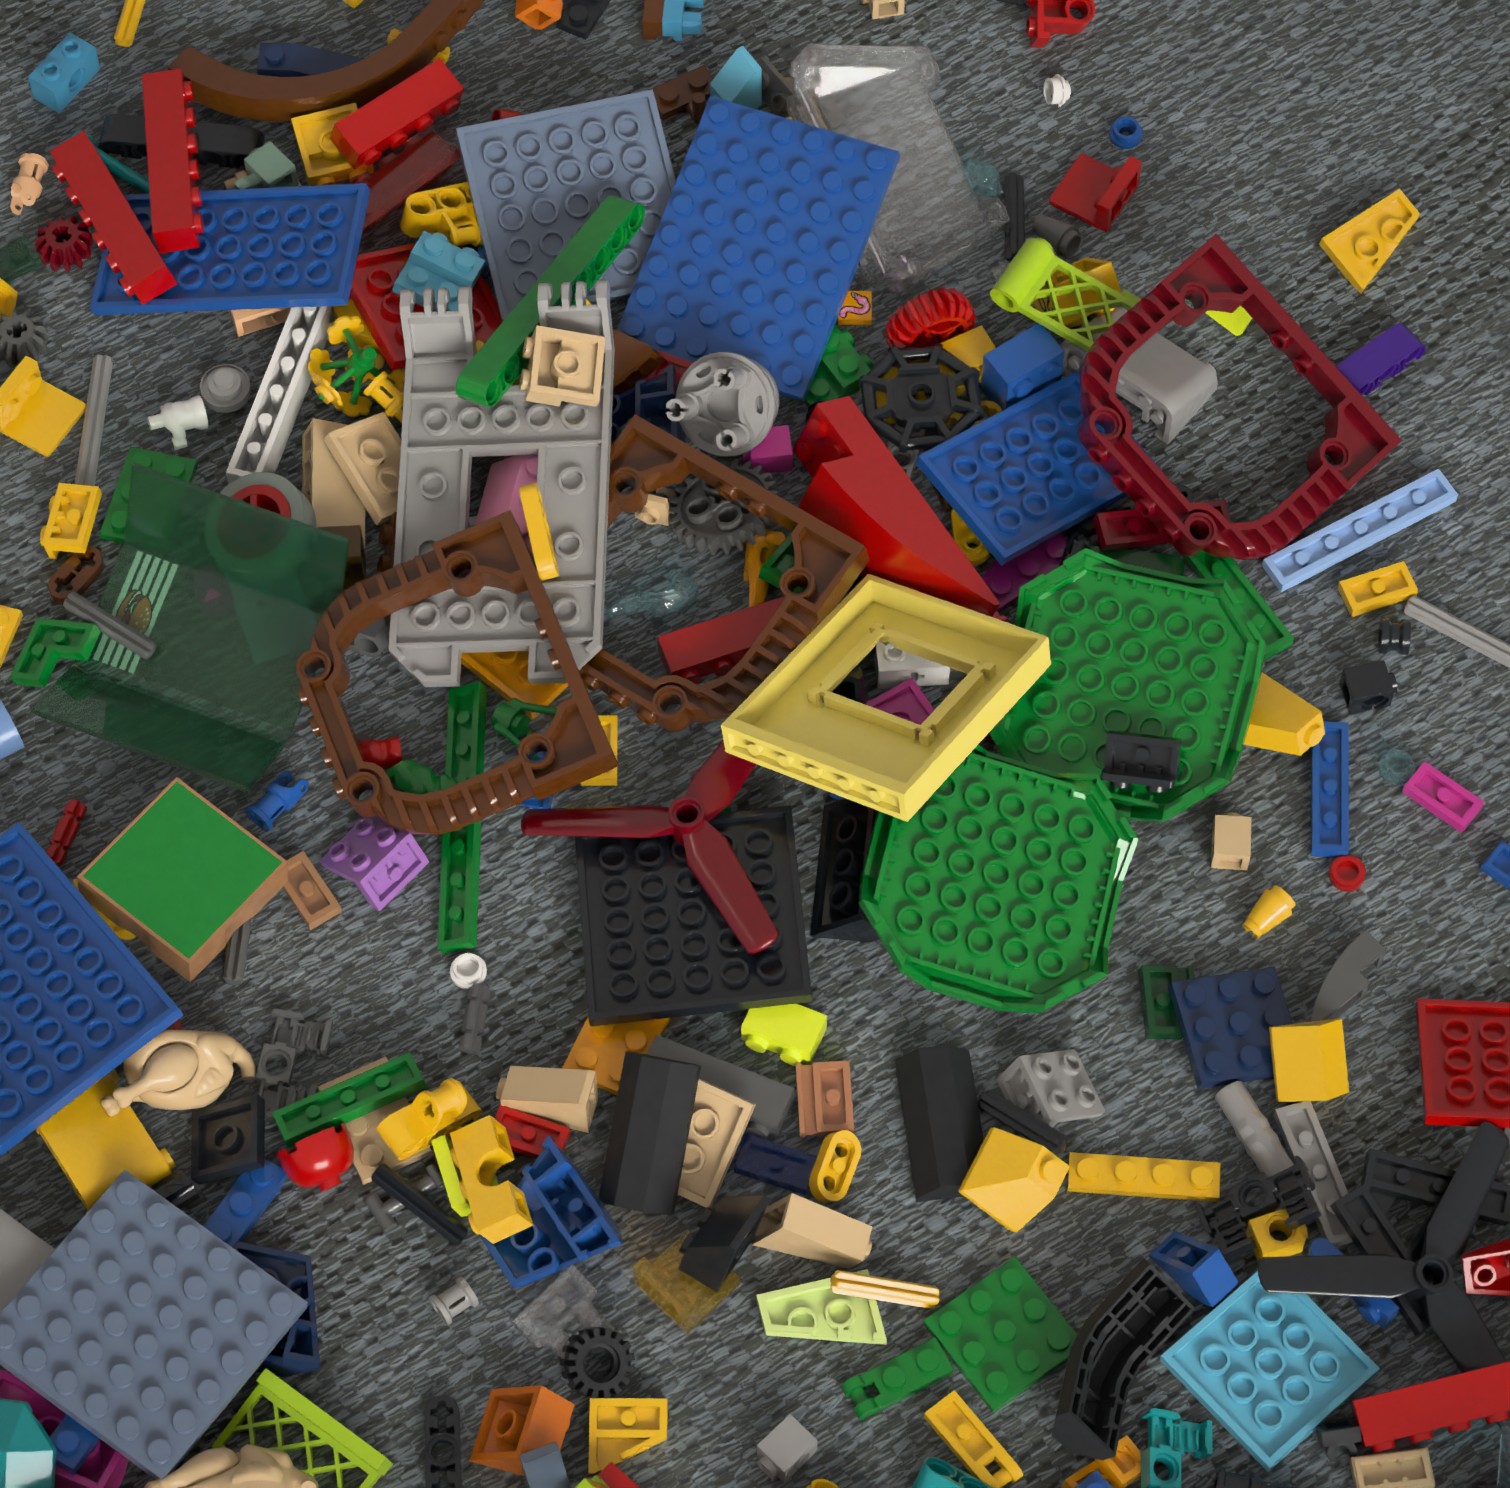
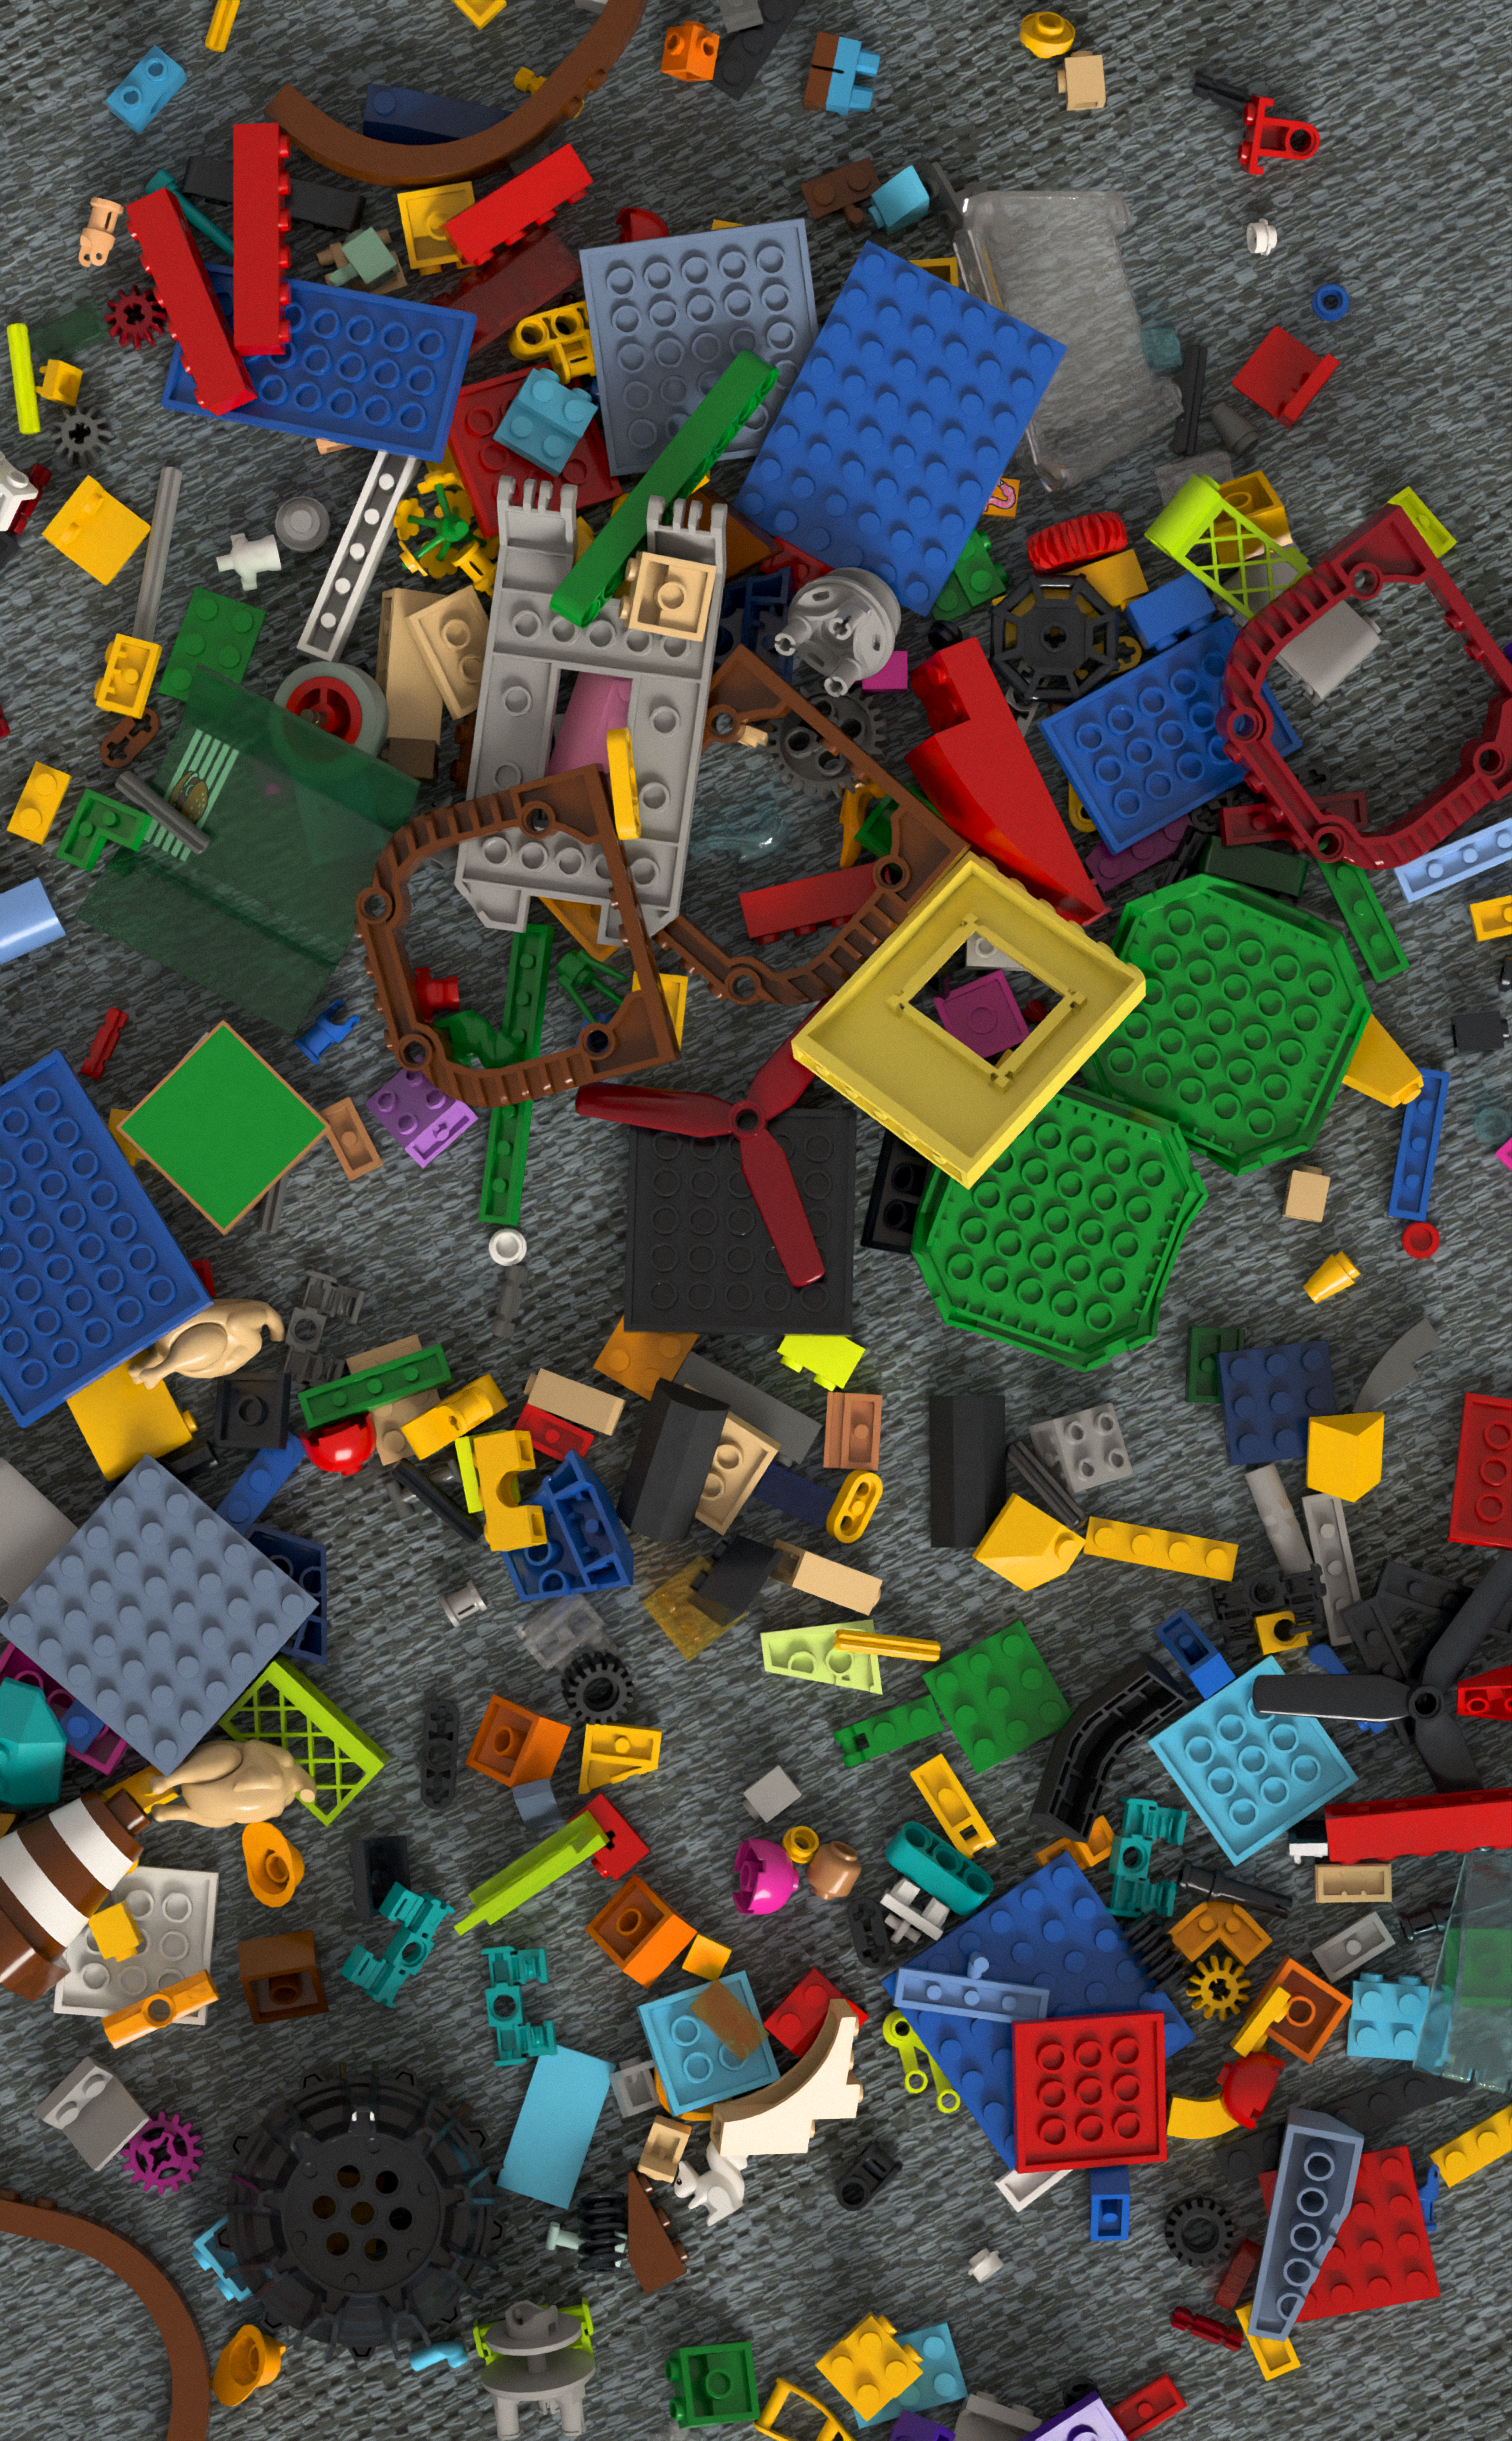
camera: 10 degrees right, 25 degrees up
(1141, 760) = (1224, 1115): black bracket -> none

